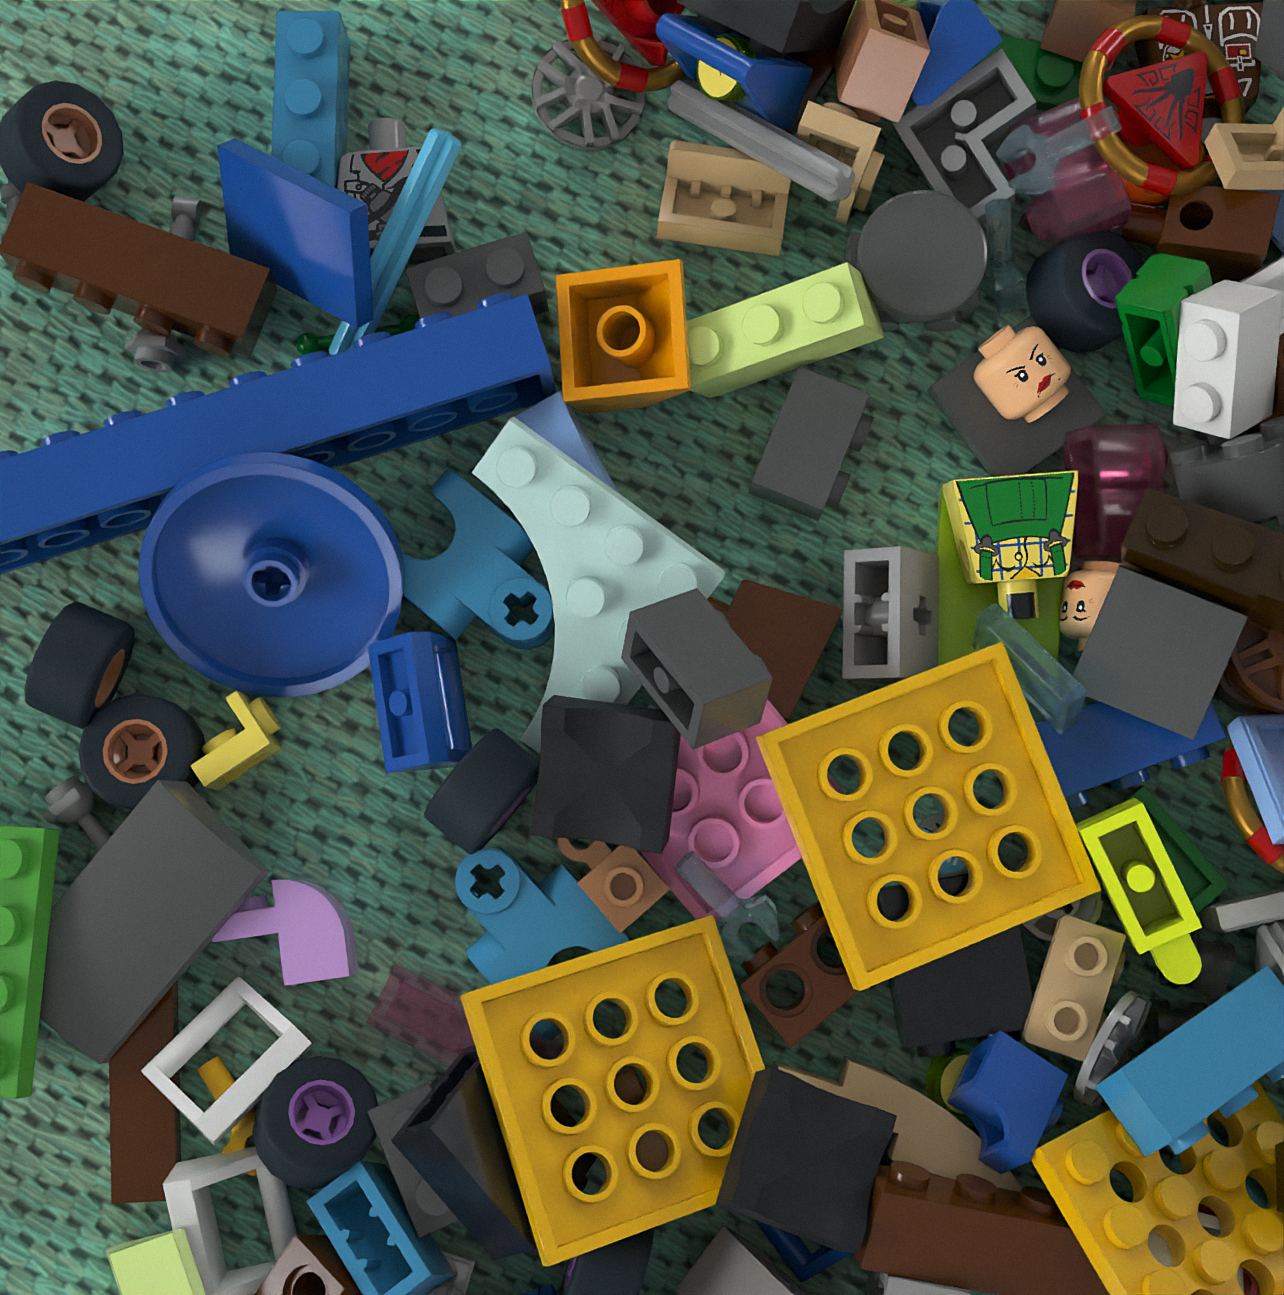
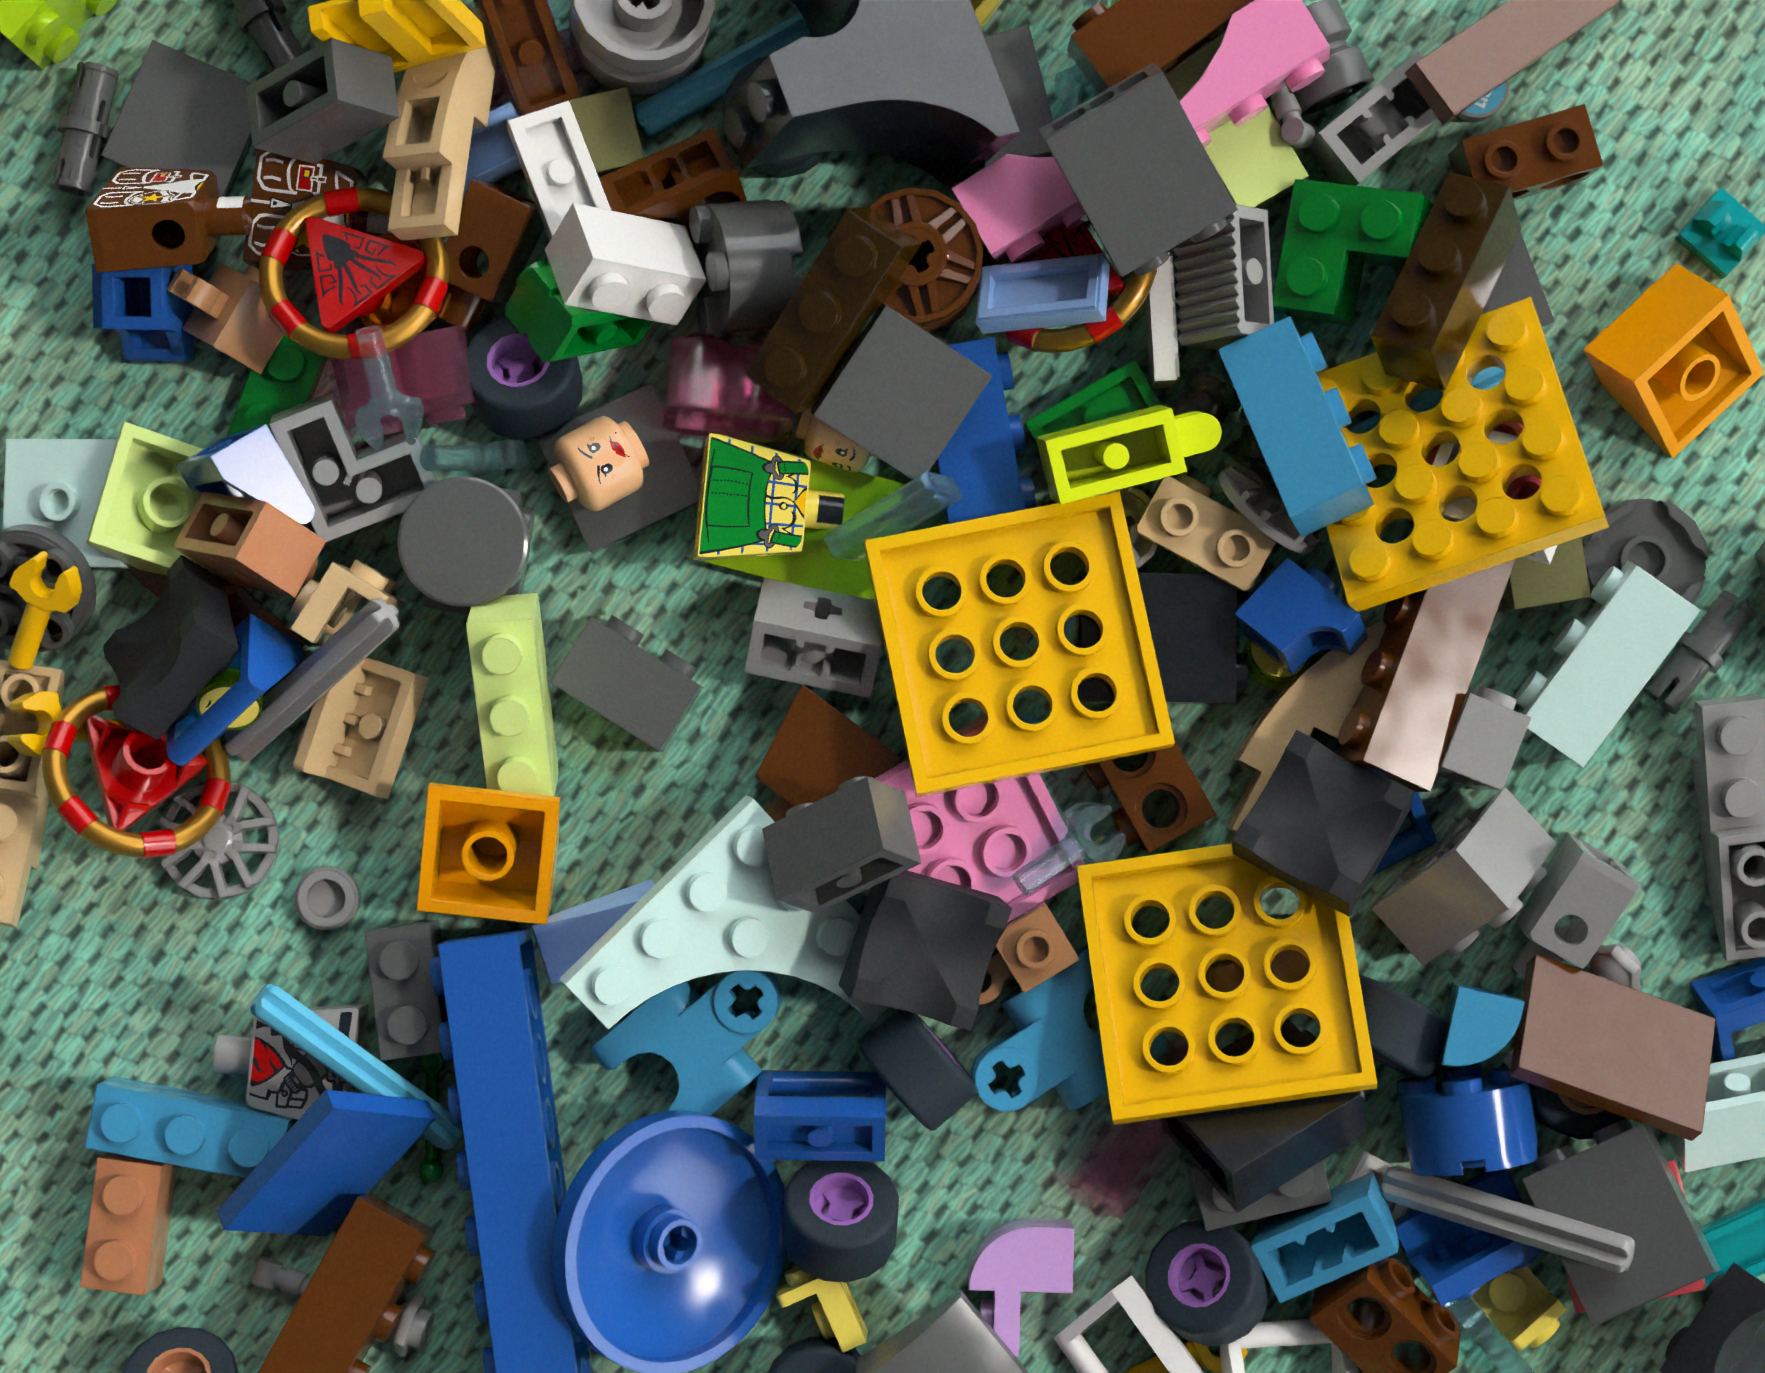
camera: 85 degrees left, 5 degrees up
(210, 69) = (128, 1224): none -> nougat brick
(321, 740) = (840, 1219): none -> black wheel
(551, 203) = (328, 898): none -> light grey tile

